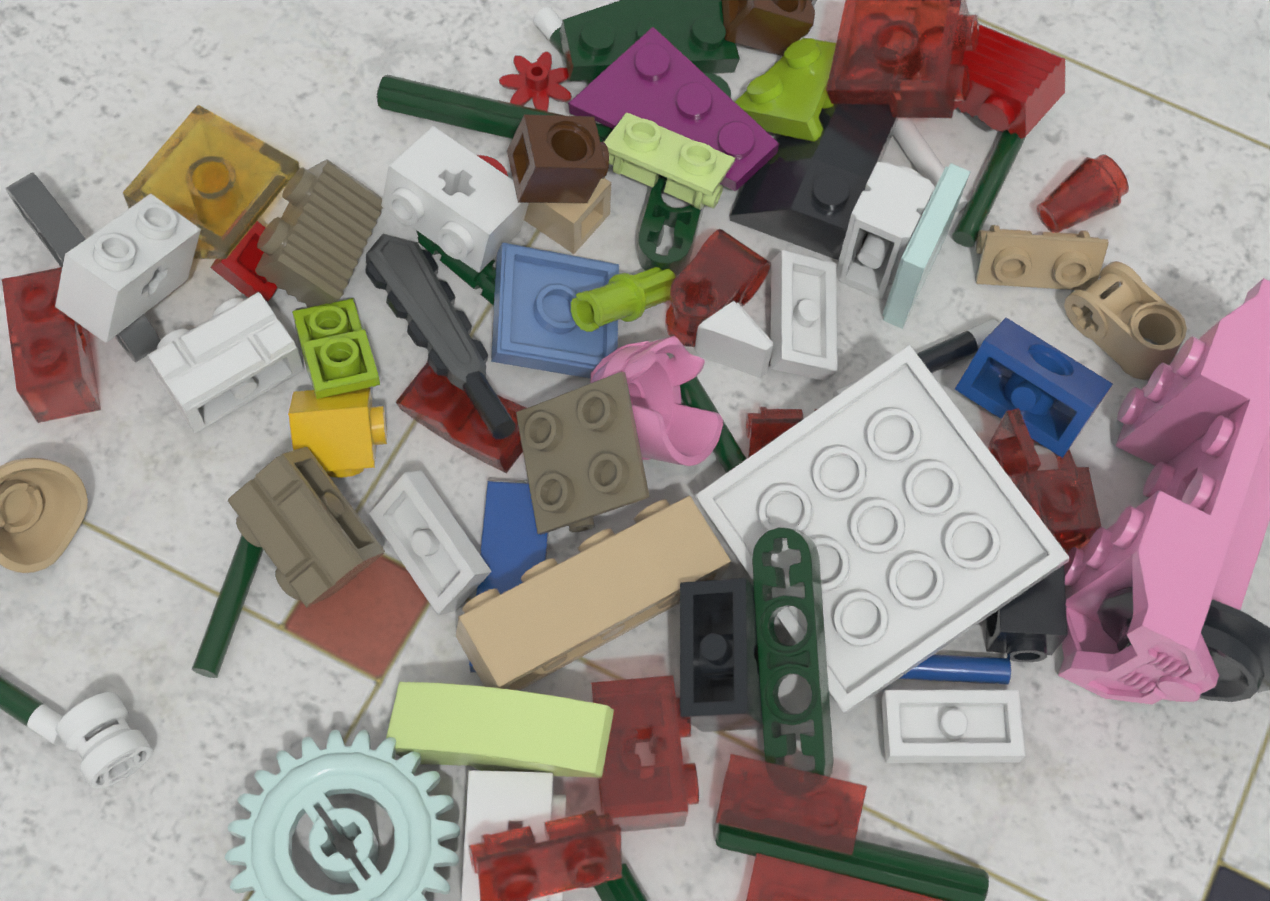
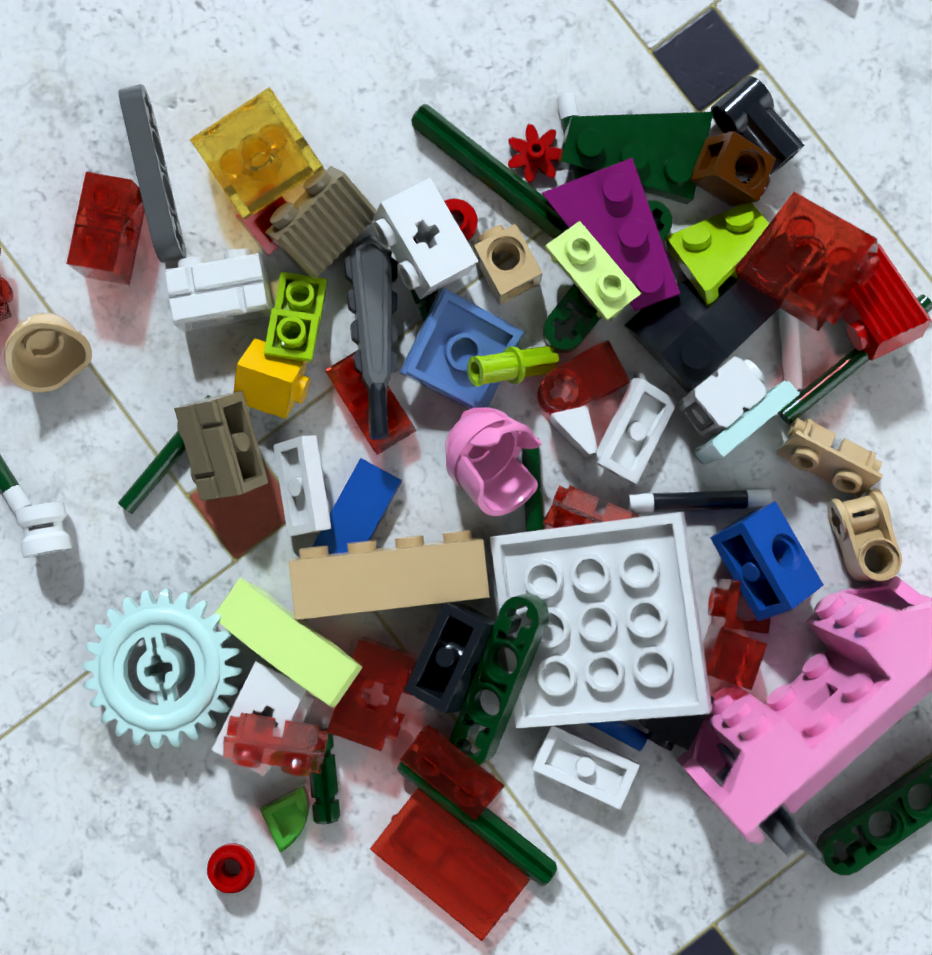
camera: 35 degrees right, 20 degrees up
(127, 267) = (170, 203): white brick -> none
(557, 159) = (486, 251): reddish brown brick -> none
(582, 455) = (425, 477): dark tan hinge -> none
(1085, 193) = (891, 423): clear red cone -> none

